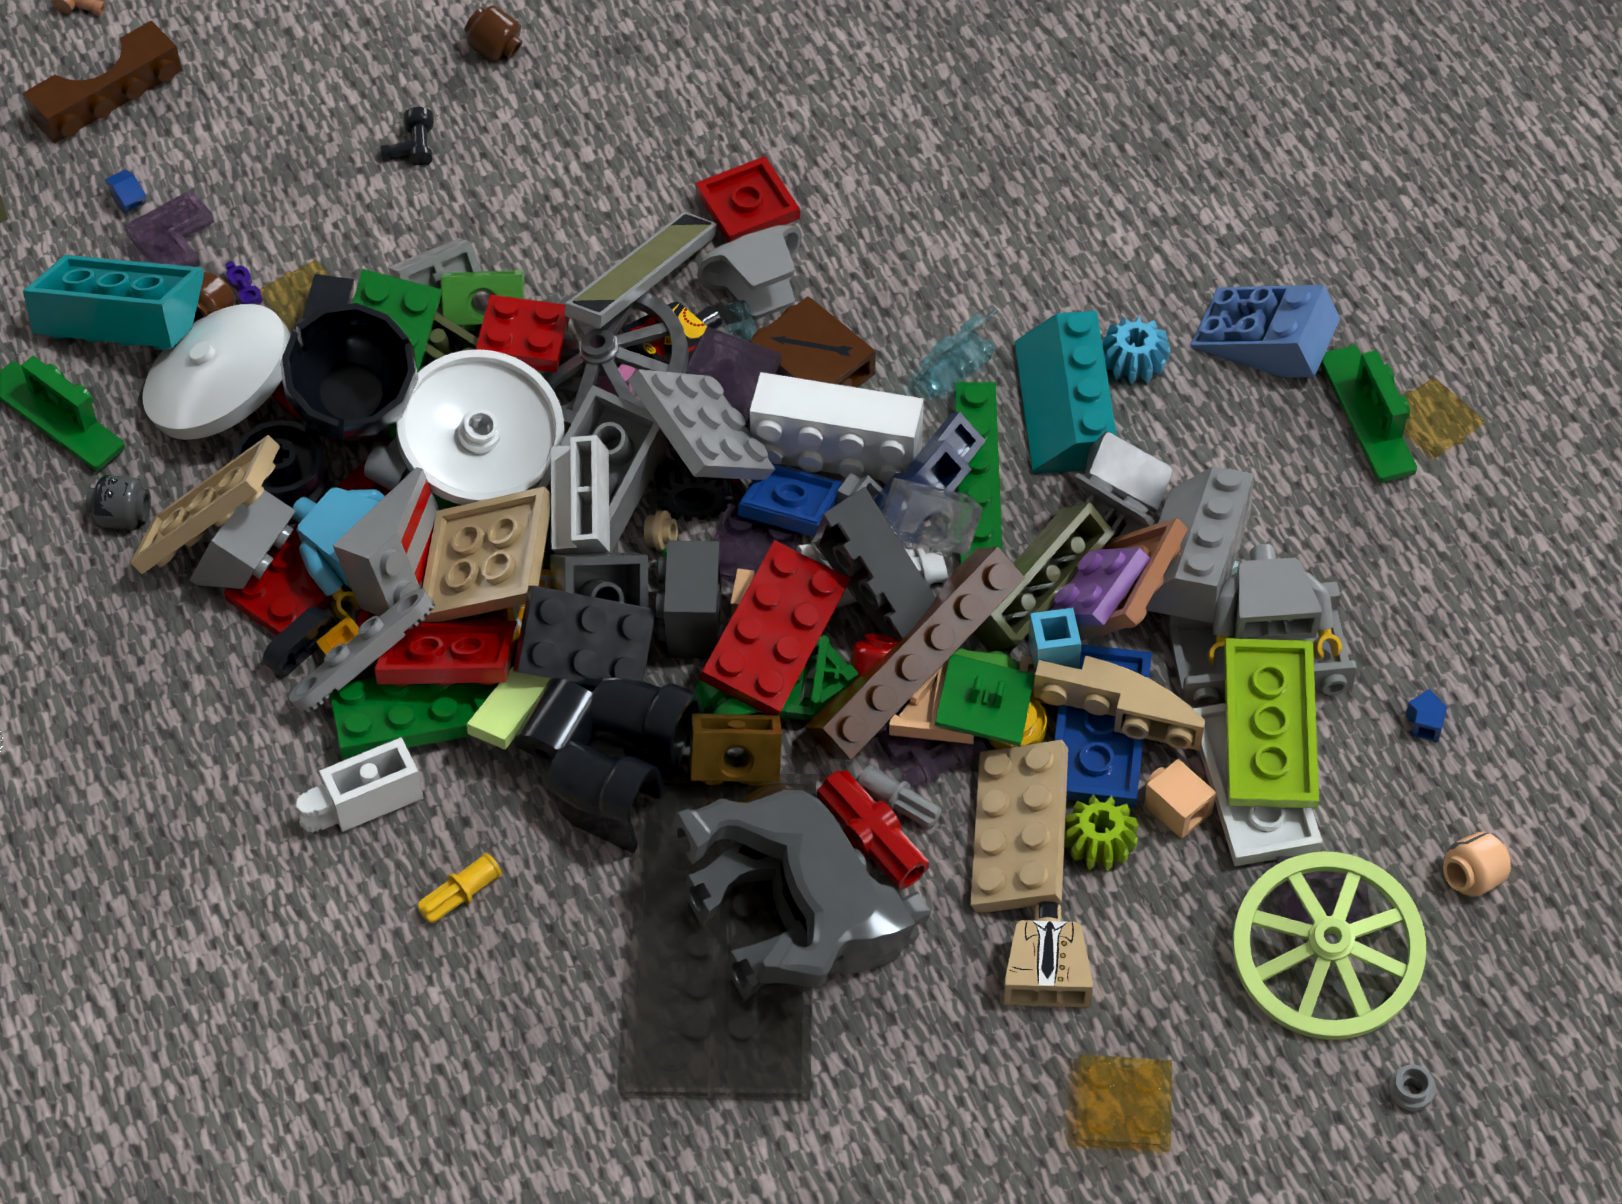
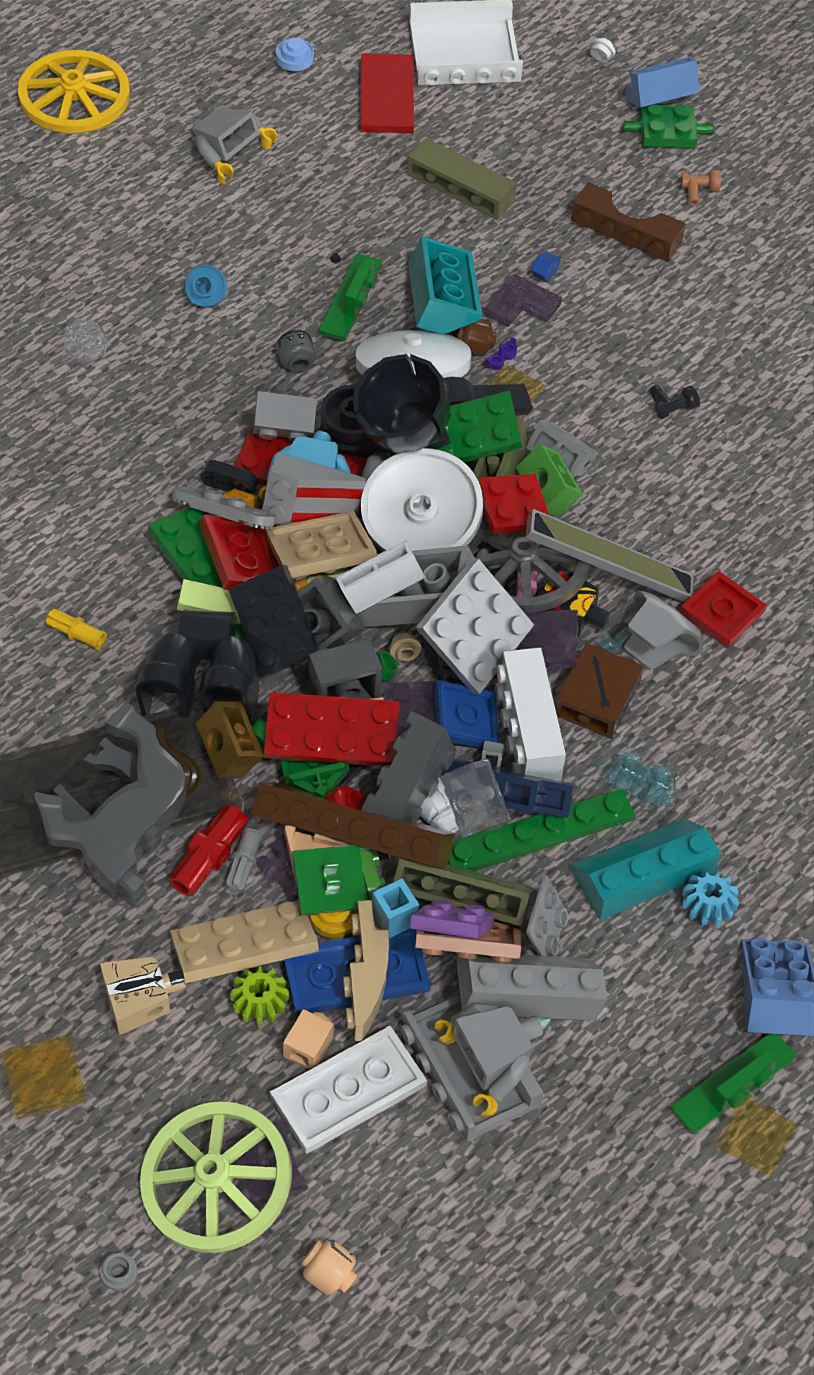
camera: 65 degrees right, 0 degrees up
(206, 505) = (292, 384): tan plate -> none
(361, 789) = (125, 548): white hinge -> none
(493, 33) = (789, 411): reddish brown head -> none
(1129, 470) = (584, 921): slope -> none
(1271, 723) = (387, 1076): lime plate -> none
(1427, 715) = (457, 1199): blue piece -> none

